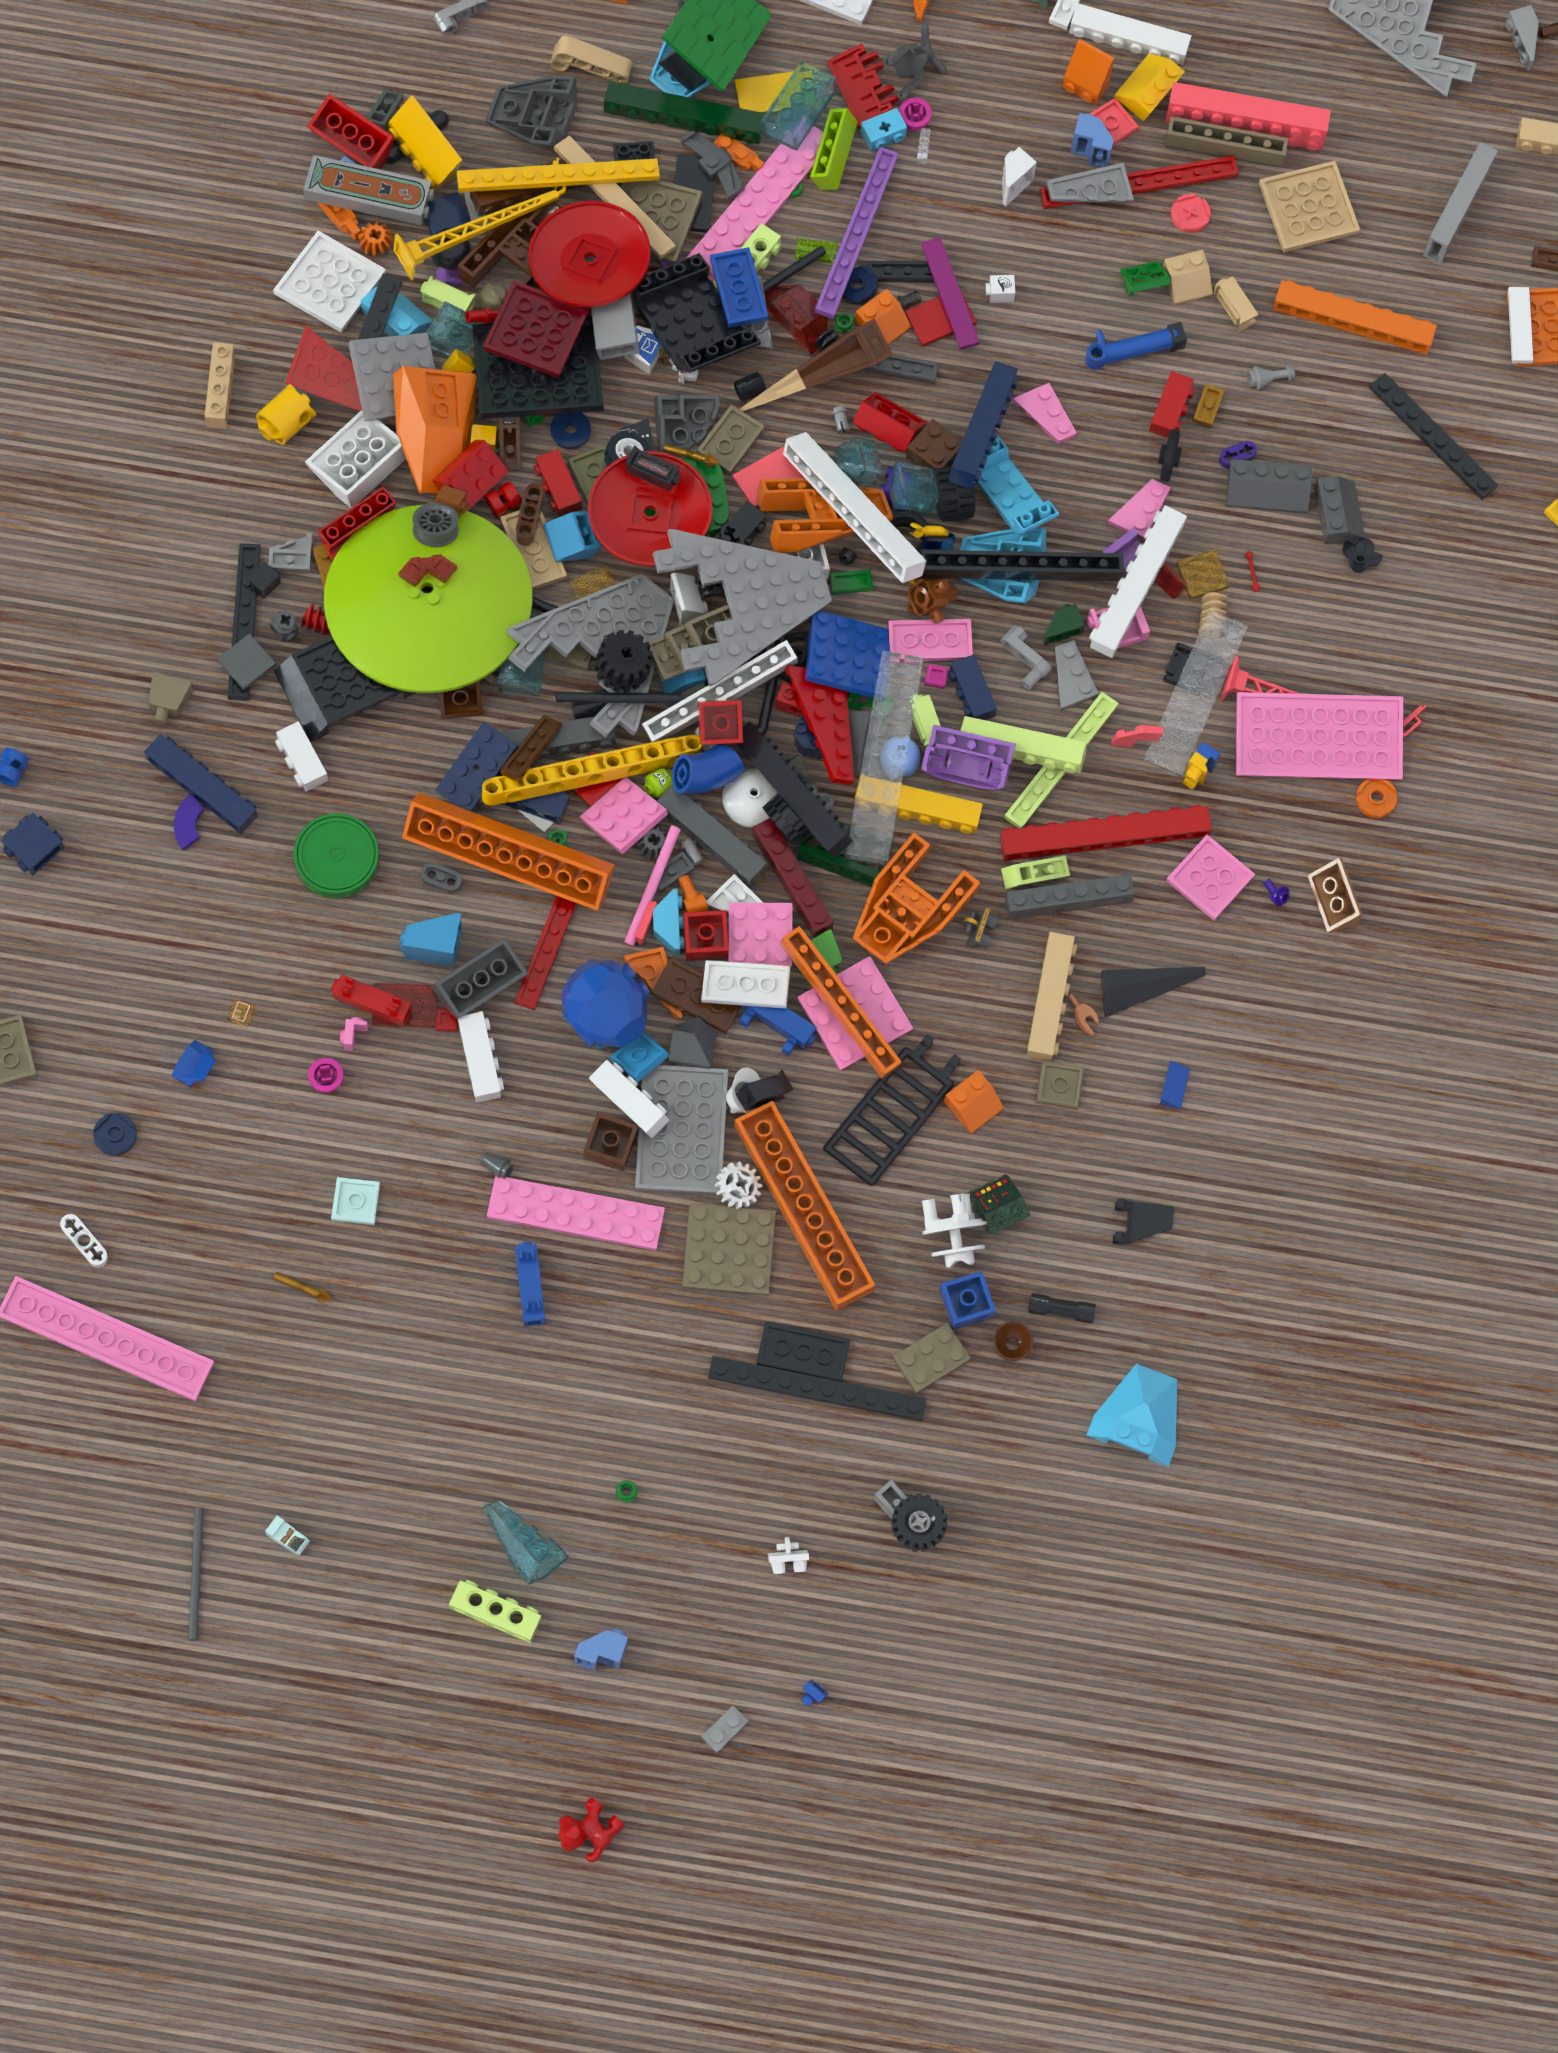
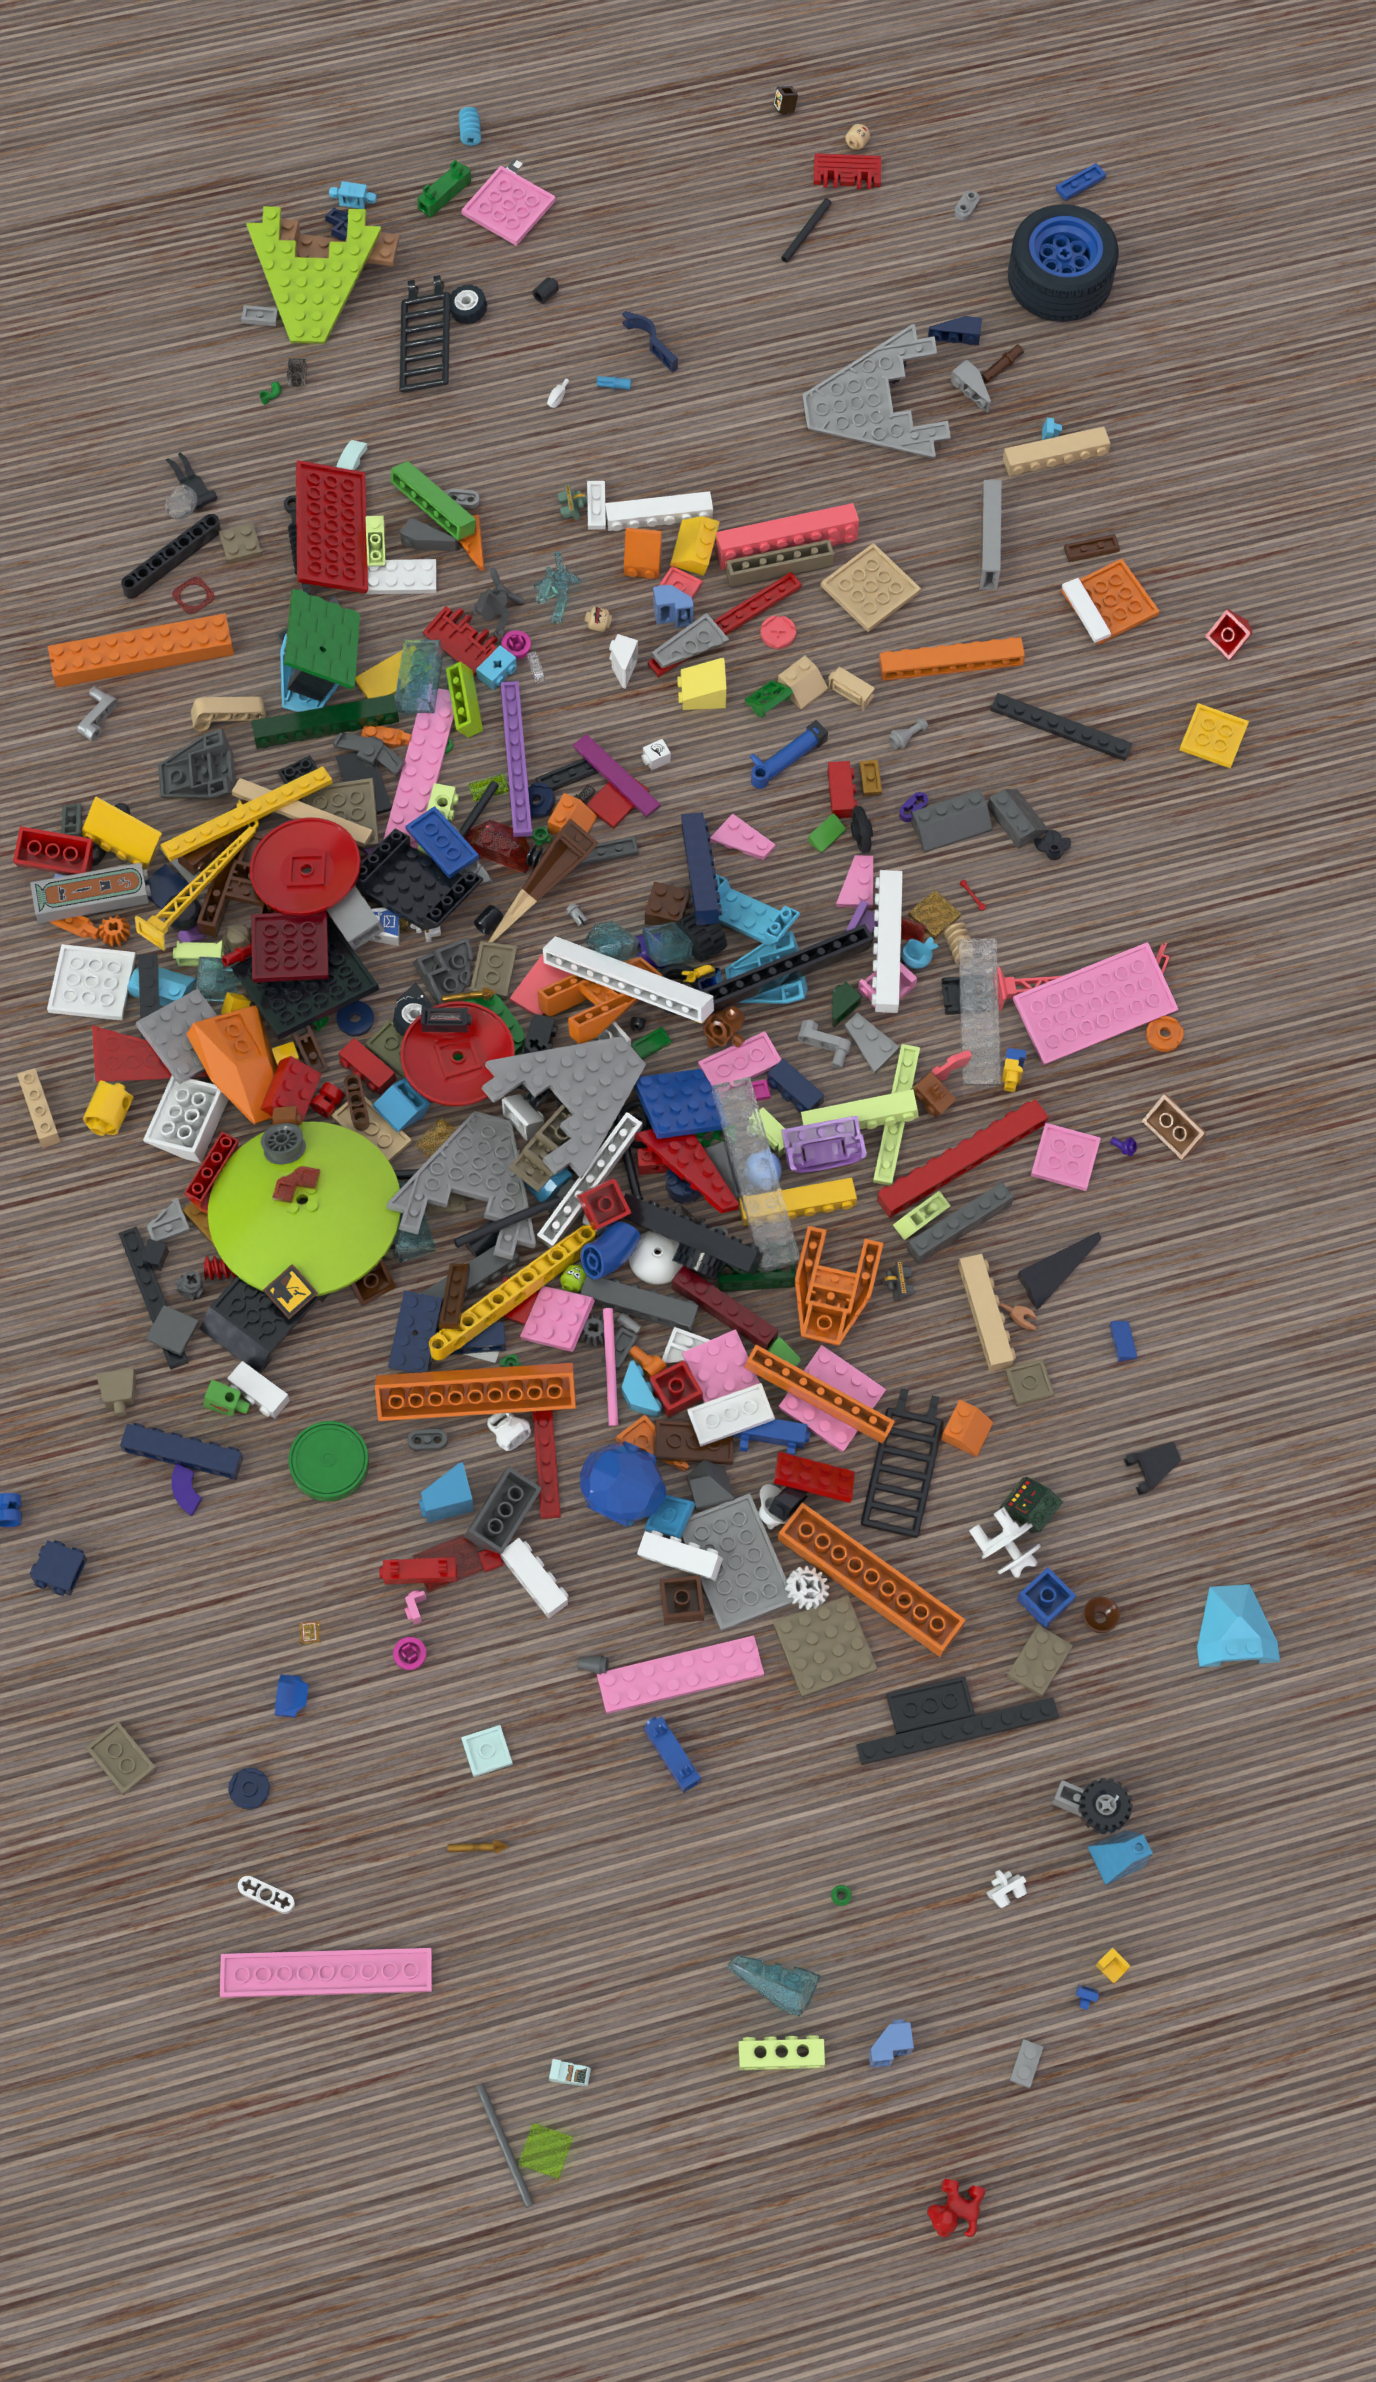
camera: 20 degrees left, 5 degrees down
(231, 1597) = (545, 2151): none -> clear neon green tile
(260, 744) = (218, 1397): none -> bright green torso
(373, 673) = (290, 1291): none -> piece
(524, 905) = (510, 1431): none -> white piece
(623, 661) = (497, 1188): black wheel -> none
(645, 923) = (620, 1400): coral tile -> none
(797, 1081) = (814, 1477): none -> red plate
(853, 1677) = (1113, 1965): none -> yellow panel
(888, 422) = (618, 900): red slope -> none
(911, 1578) = (1120, 1855): none -> dark azure slope
(985, 68) = (556, 585): none -> clear light blue piece
(1011, 122) = (598, 619): none -> tan head
(1063, 1308) = (1140, 1564): black axle -> none
(1083, 237) = (703, 686): none -> light yellow slope
(1106, 756) = (932, 1094): none -> dark orange brick
(1134, 444) = (826, 833): none -> bright green slope
(1164, 608) = (916, 954): none -> medium azure hat

